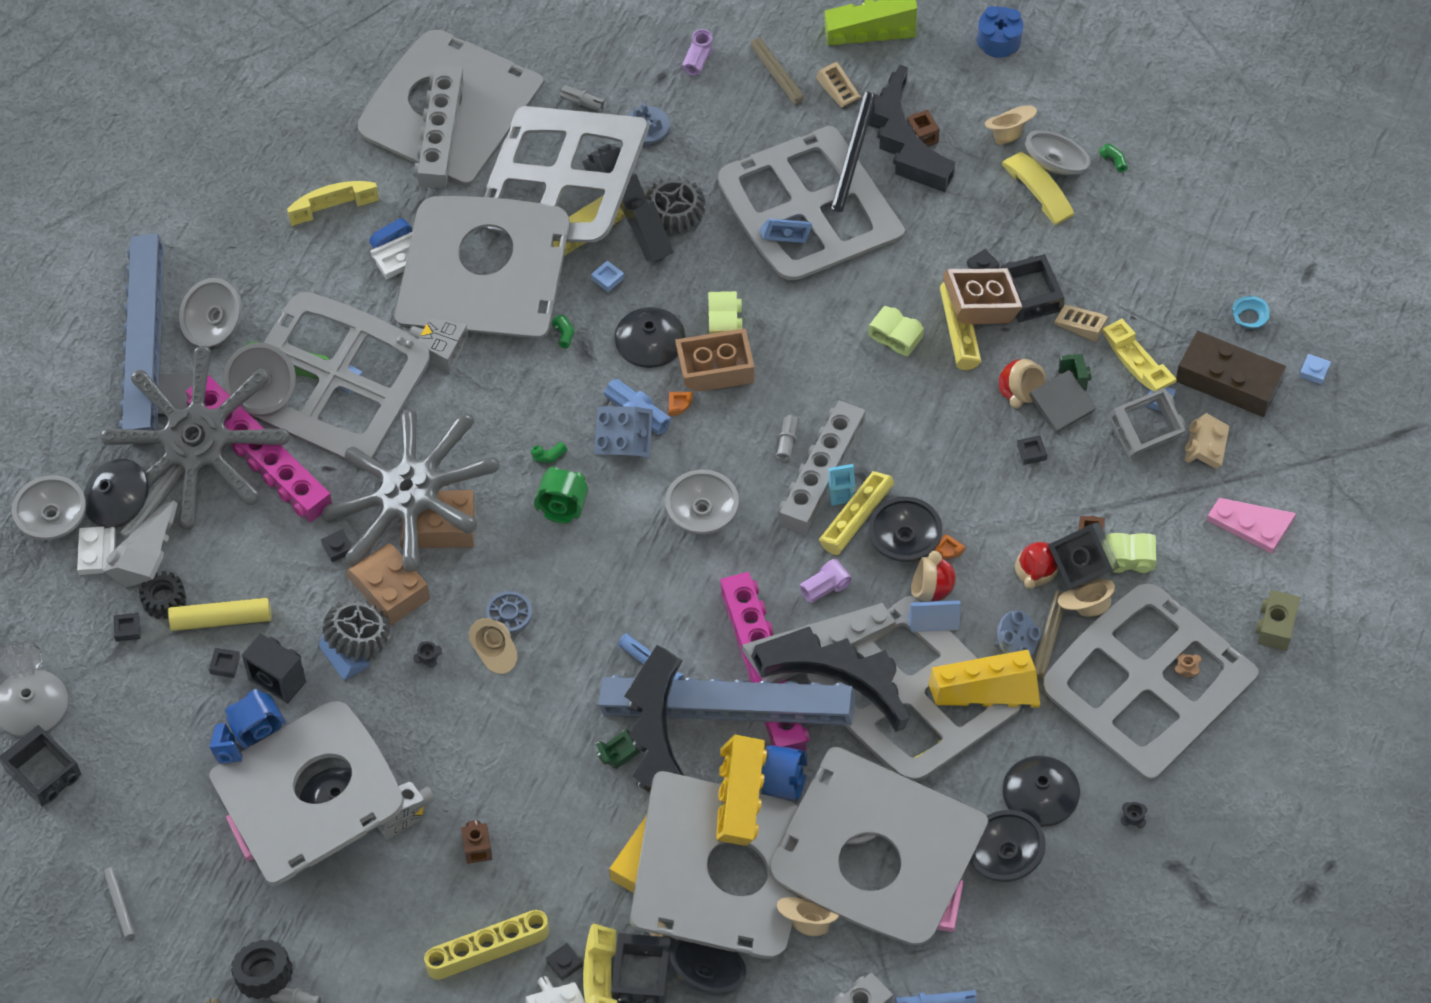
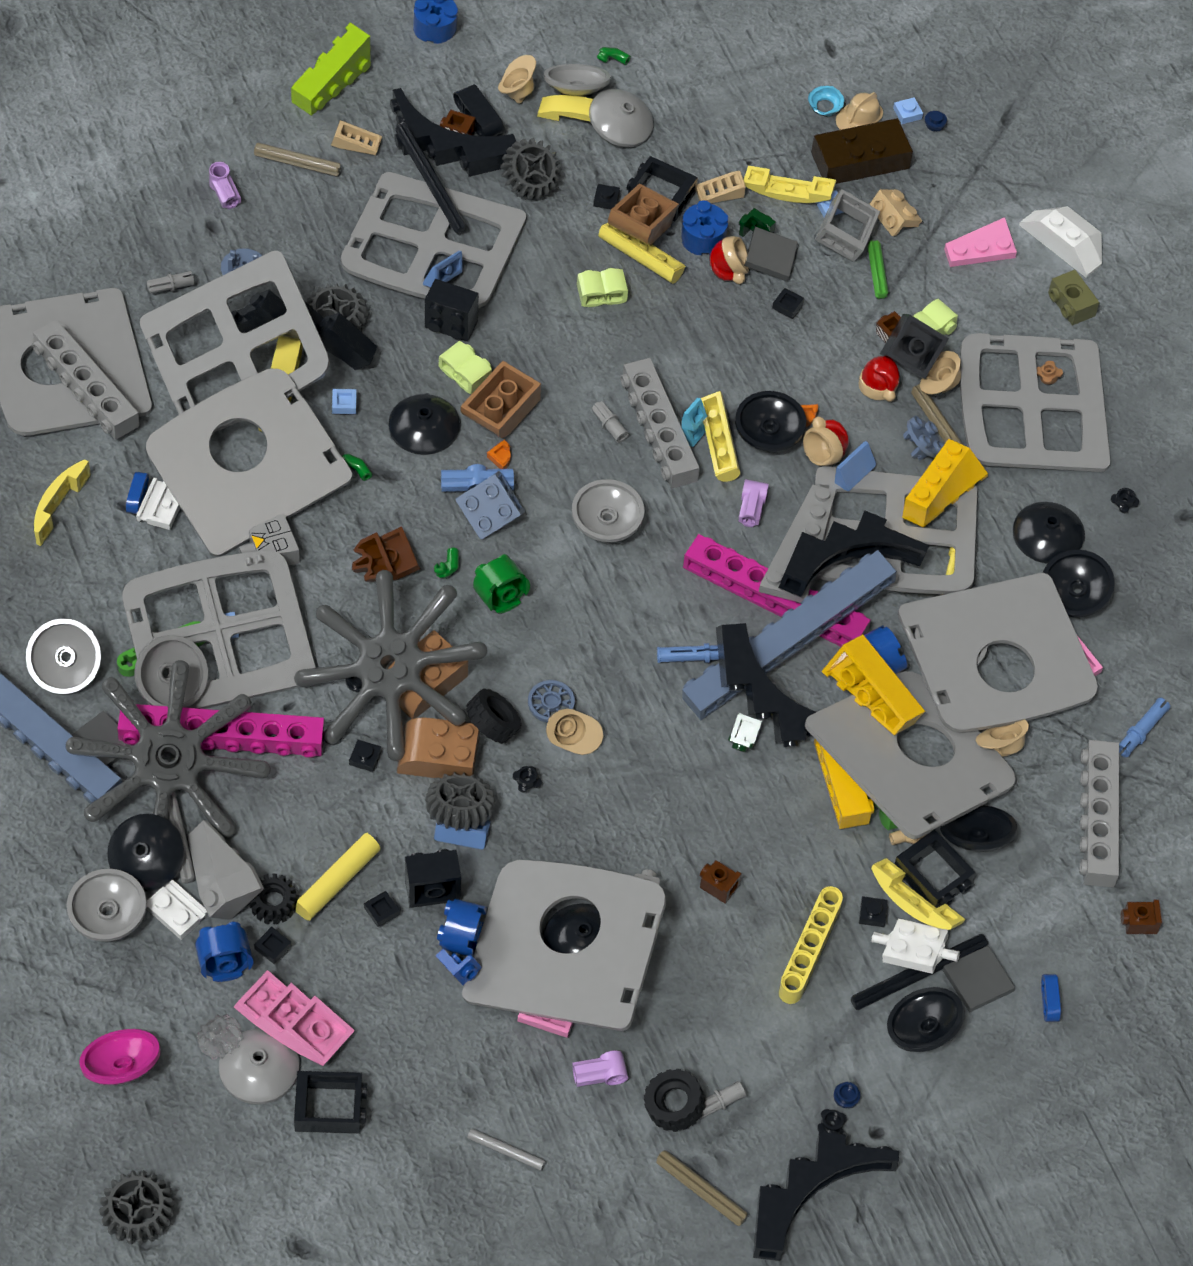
camera: 50 degrees left, 0 degrees up
(81, 688) = (294, 1019): none -> bright pink slope
(85, 602) = (223, 952): none -> blue brick
(244, 907) = (608, 1069): none -> lavender piece
(461, 583) = (493, 715): none -> black tyre
(508, 412) = (385, 552): none -> reddish brown plate
(754, 263) = (451, 310): none -> black brick
(949, 195) = (546, 178): none -> dark grey gear
(953, 128) = (473, 103): none -> black beam
(1027, 339) = (703, 227): none -> blue brick
(1053, 218) = (621, 118): none -> light grey dish
(1139, 477) = (877, 269): none -> bright green axle
(1273, 342) = (860, 111): none -> tan piece
(1329, 393) = (935, 120): none -> dark blue plate
(1334, 569) = (1067, 237): none -> white wedge

